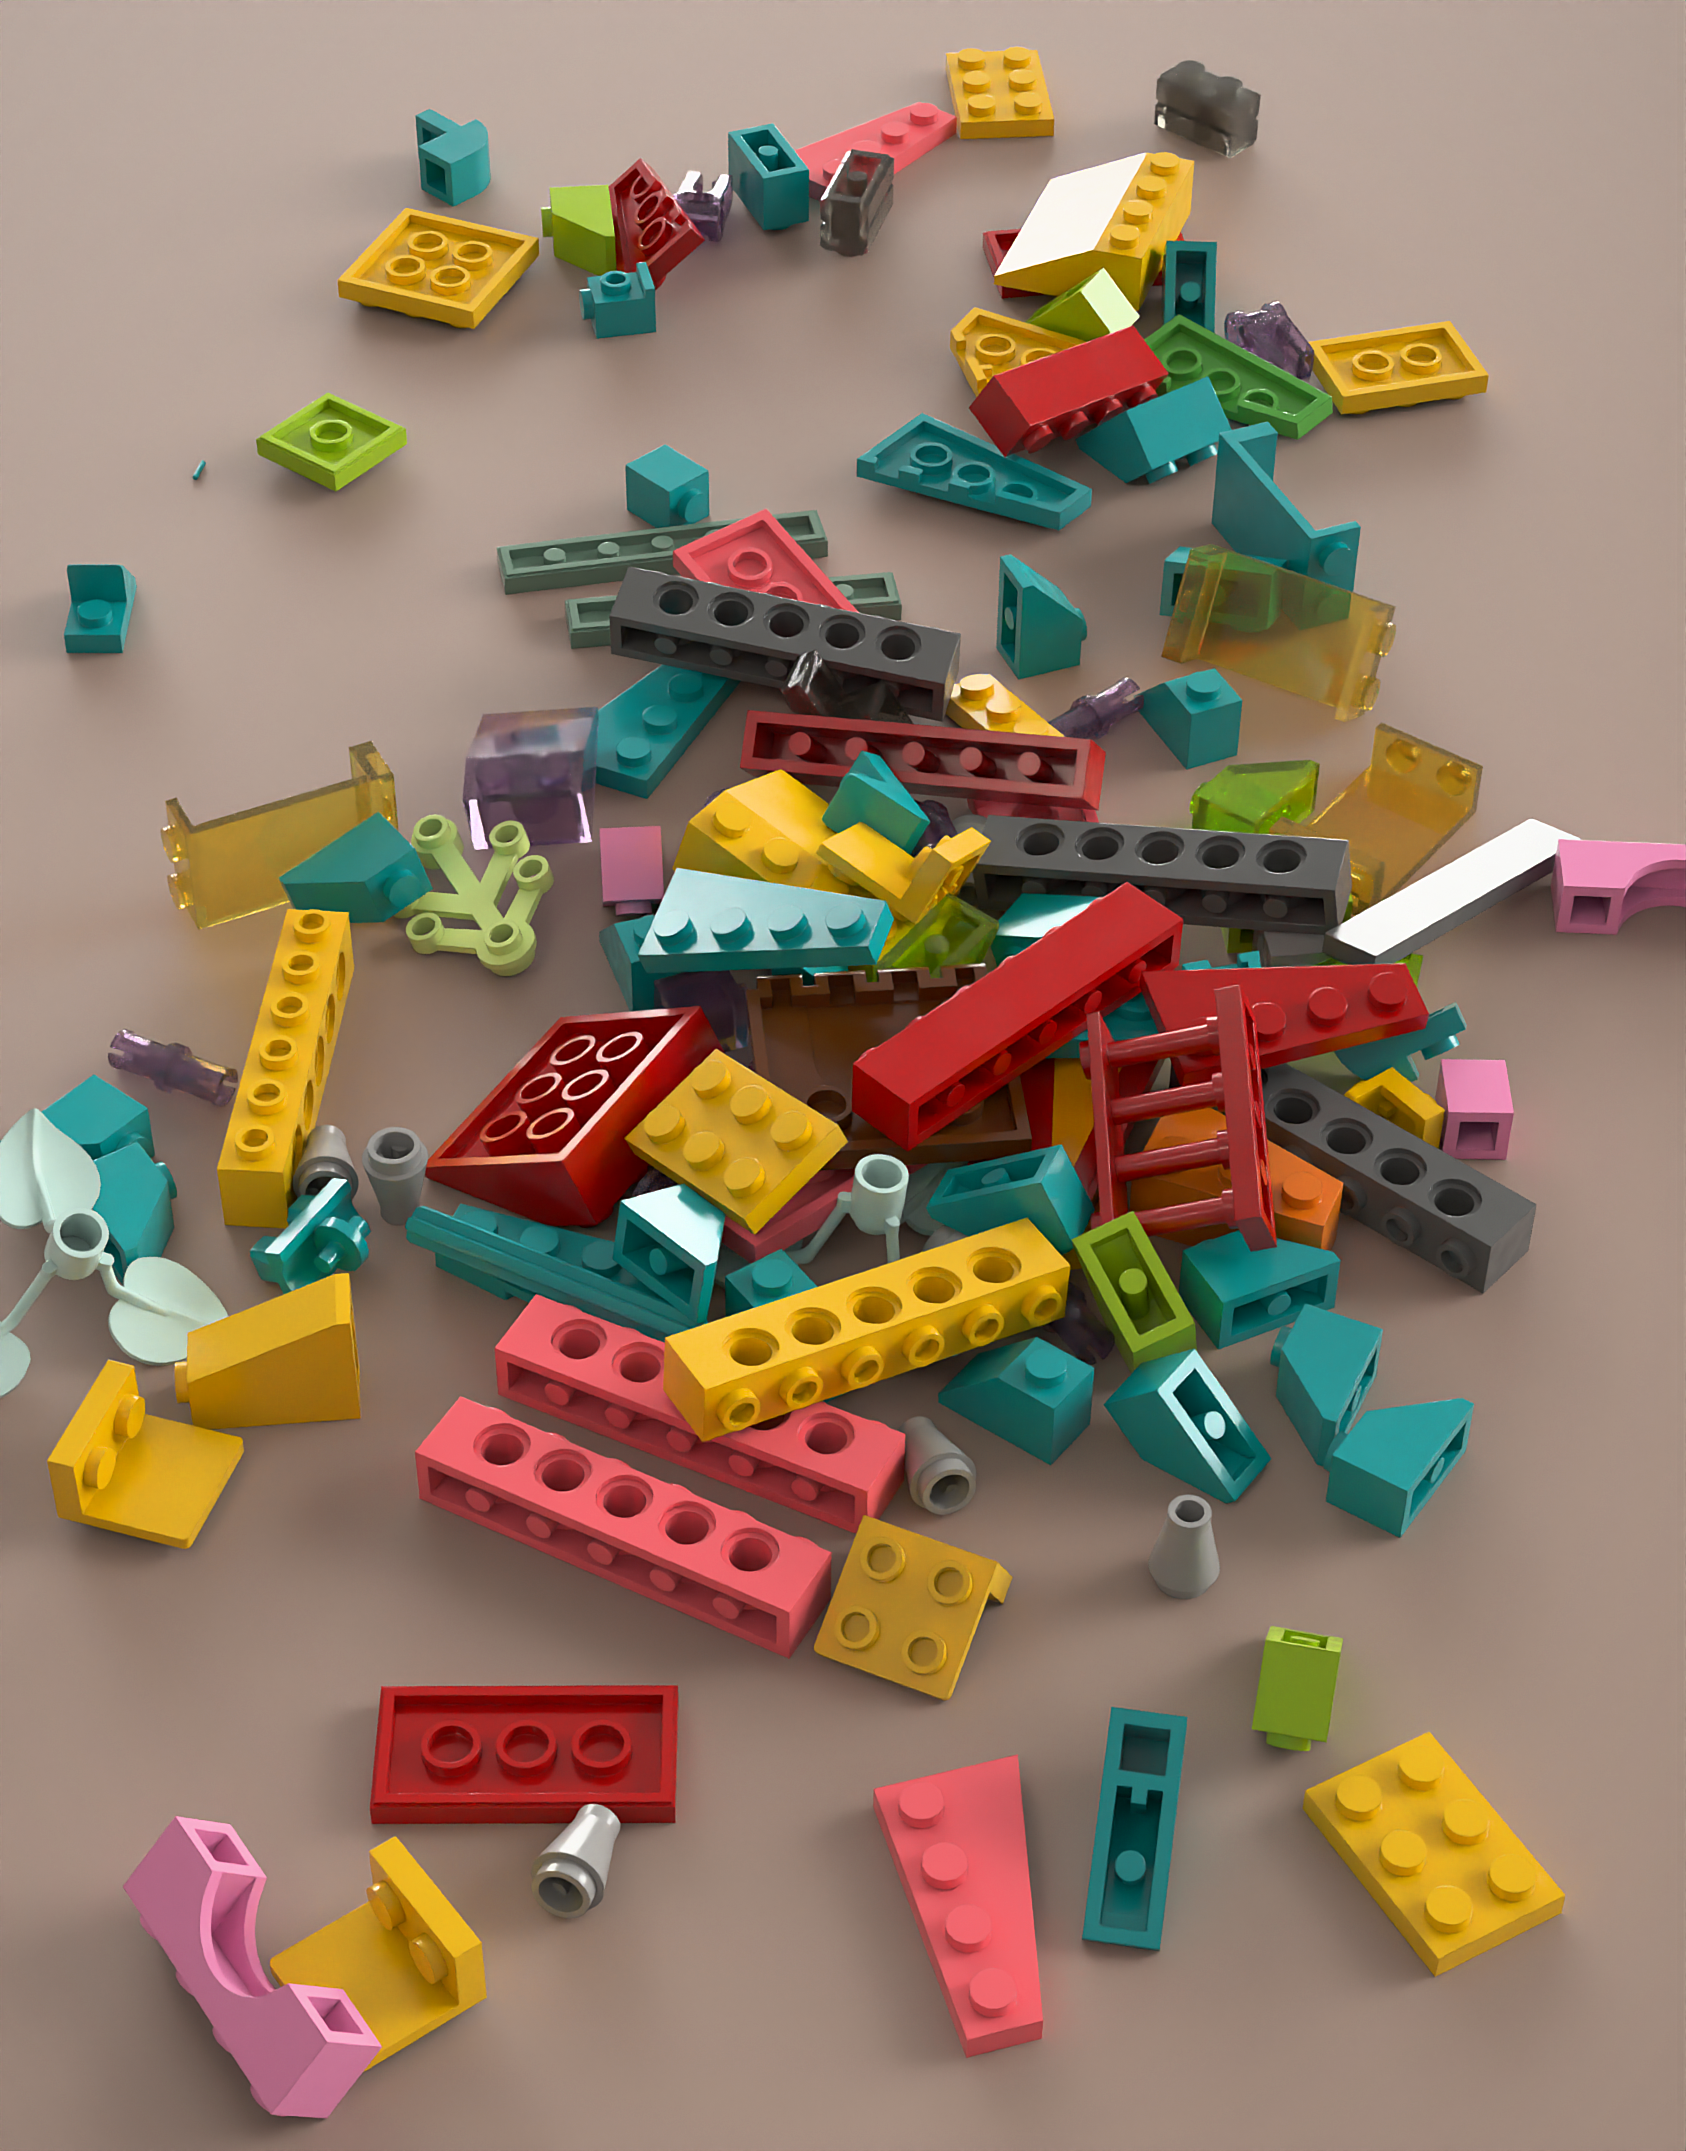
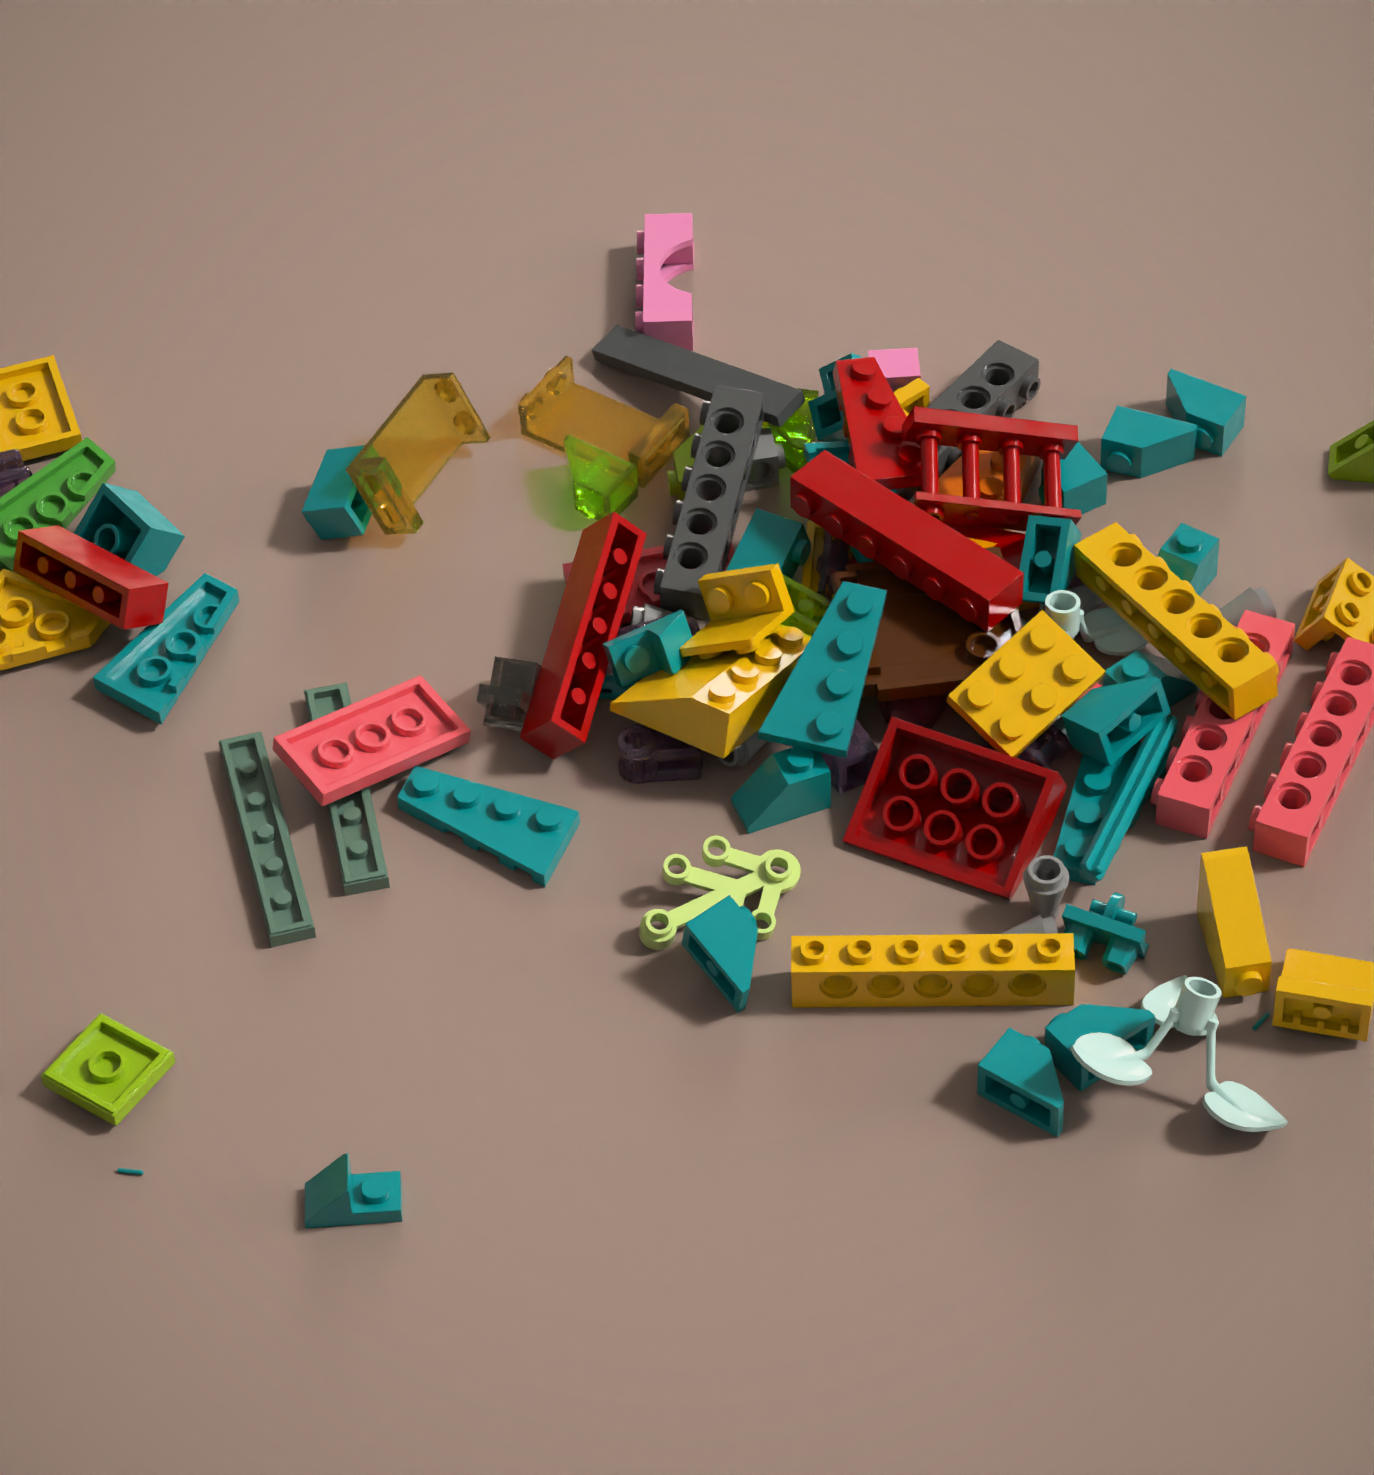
camera: 90 degrees left, 5 degrees up
(173, 1067) = (930, 1048): pin -> none
(236, 860) = (667, 947): clear yellow panel -> none
(535, 773) = (583, 867): clear purple slope -> none
(631, 869) = (686, 804): bright pink slope -> none
(667, 488) = (197, 829): teal brick -> none
(761, 635) = (442, 721): dark grey brick -> none
(987, 705) = (503, 613): yellow plate -> none
(1035, 622) = (393, 596): teal slope -> none
(1093, 715) = (500, 581): clear purple pin -> none
(1134, 1292) = (1120, 501): lime slope -> none
(1185, 1552) = (1294, 499): light grey cone -> none
(1188, 1425) = (1191, 501): teal slope -> none
(1195, 717) = (483, 514): teal slope -> none
(1264, 522) = (273, 464): teal panel -> none

